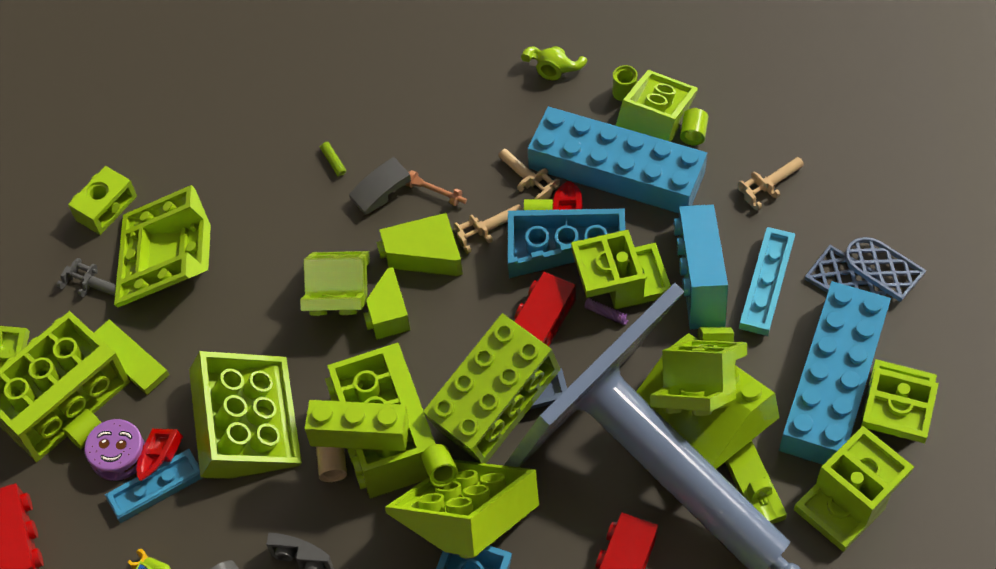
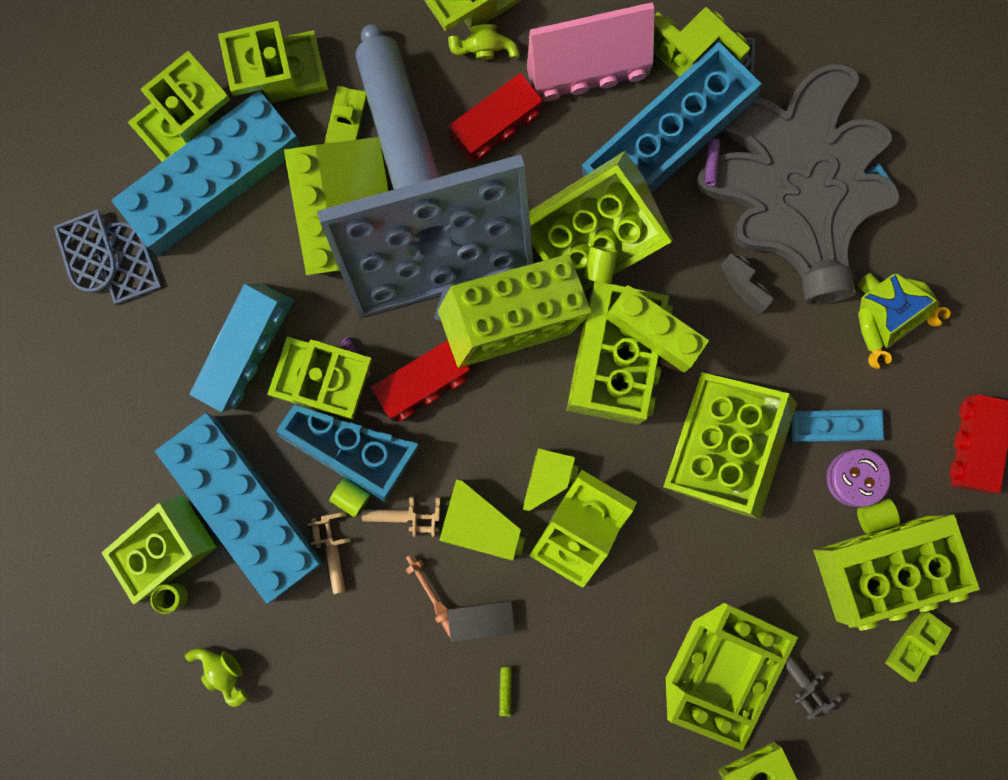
camera: 160 degrees left, 25 degrees up
(137, 363) = (806, 575): lime tile -> none
(158, 448) = (823, 451): red plate -> none
(567, 197) = (315, 491): red plate -> none
(694, 126) = (139, 502): lime beam -> none
(698, 376) = (340, 180): lime bracket -> none
(715, 334) = (284, 260): lime slope -> none
(767, 183) = (116, 401): tan piece -> none
(767, 281) = (196, 298): medium azure plate -> none

